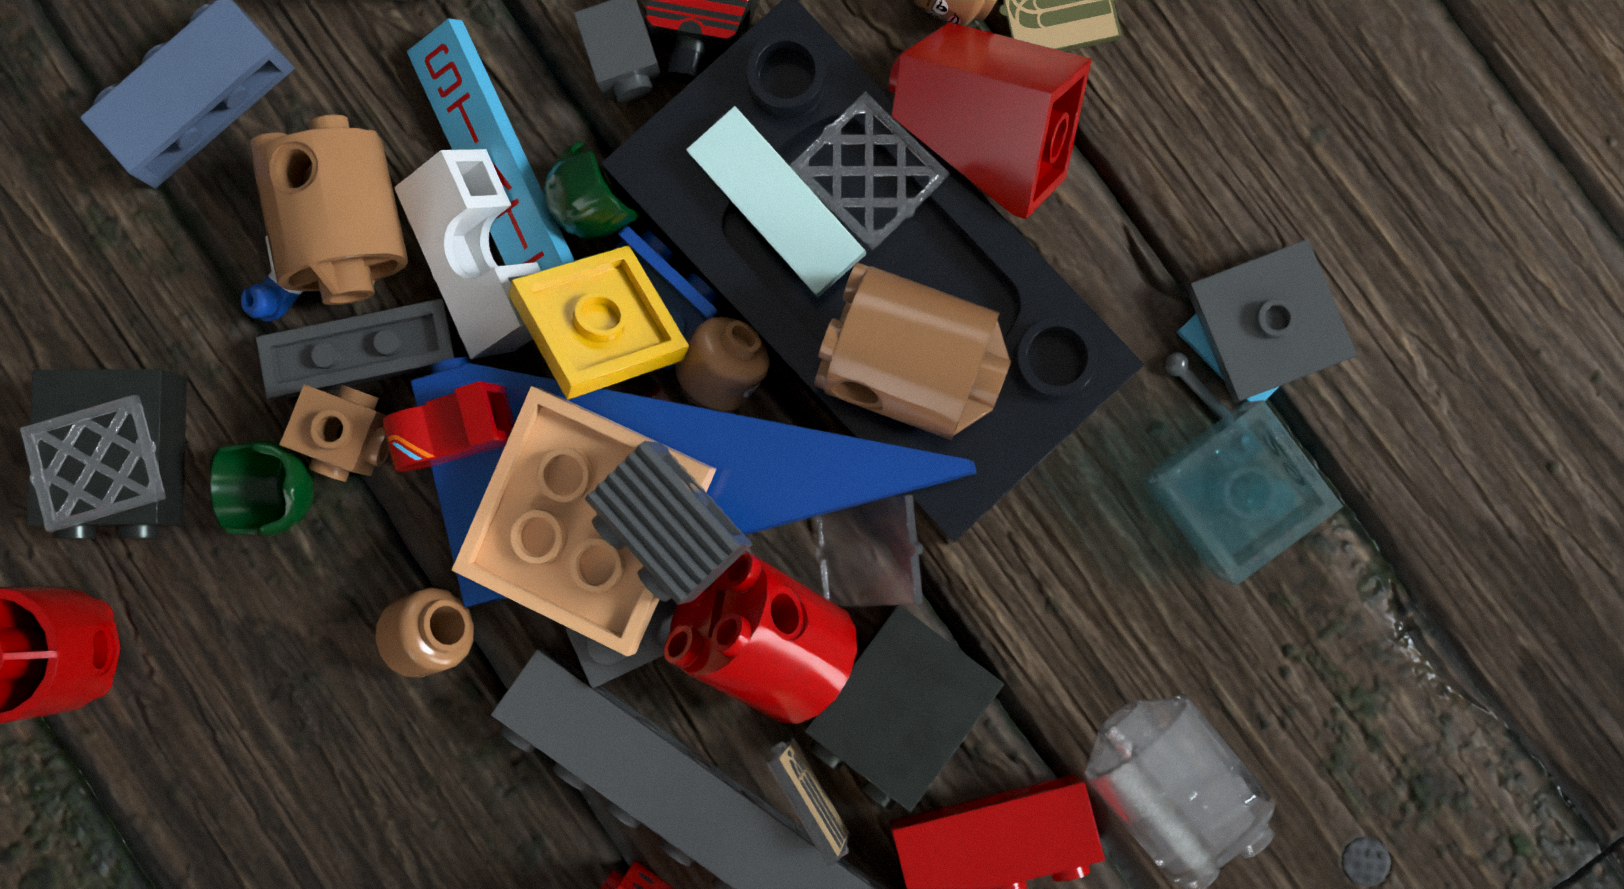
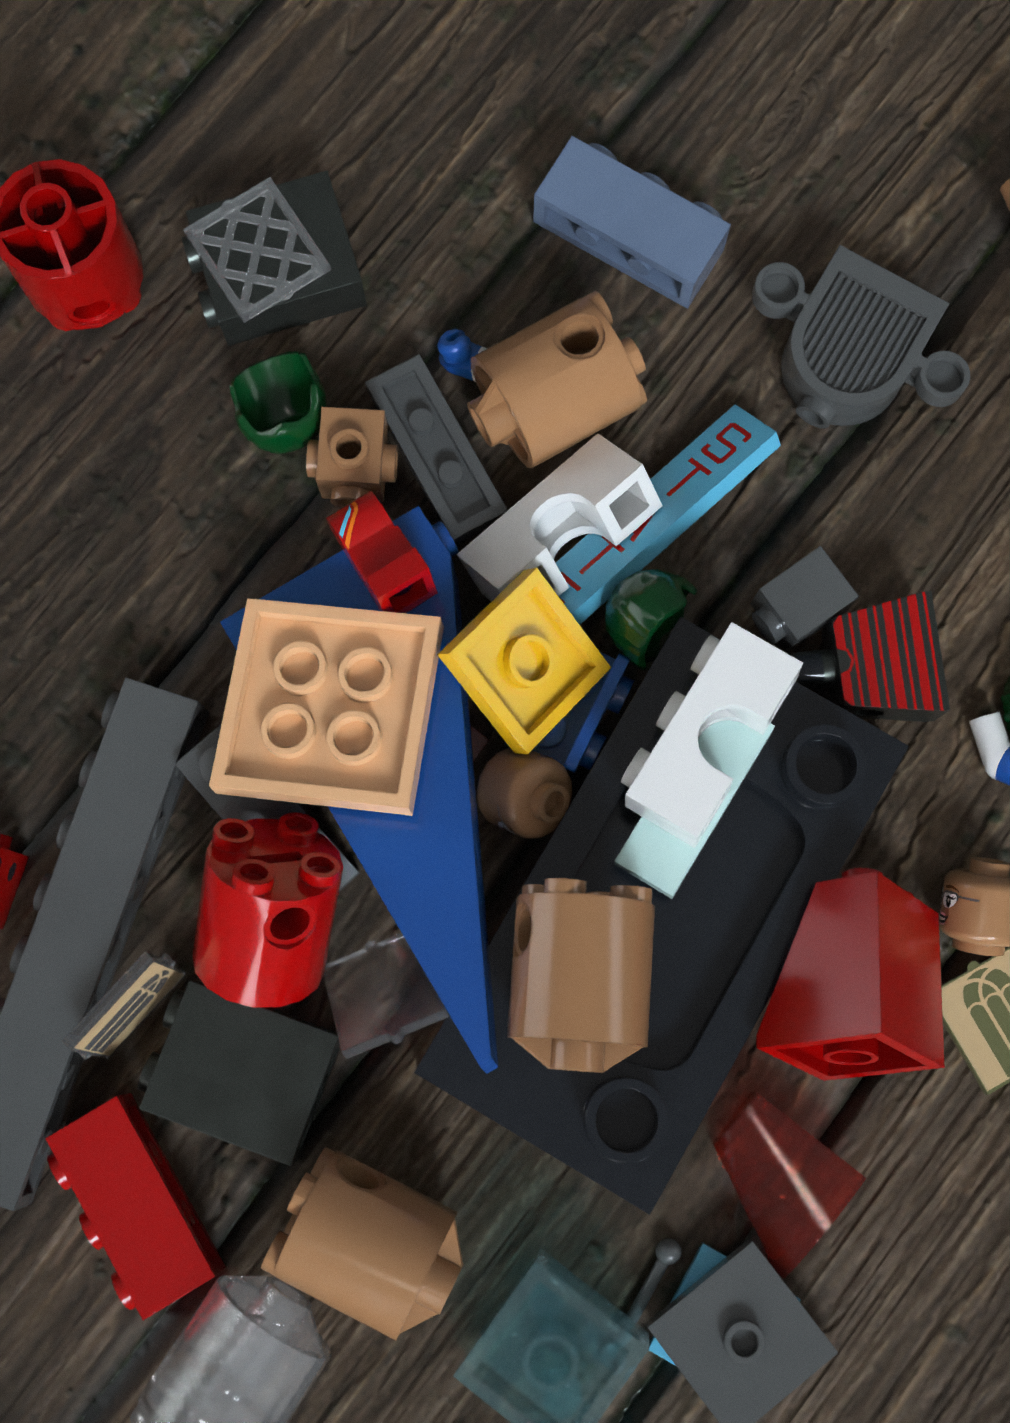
camera: 70 degrees right, 5 degrees down
(424, 633) = (186, 593): medium nougat head -> none
(666, 524) = (340, 783): dark grey brick -> none
(684, 120) = (738, 682): none -> white arch
(905, 206) = (779, 830): clear window -> none
(1097, 631) = (367, 1245): none -> medium nougat cylinder
(1143, 239) = (783, 1180): none -> clear red slope

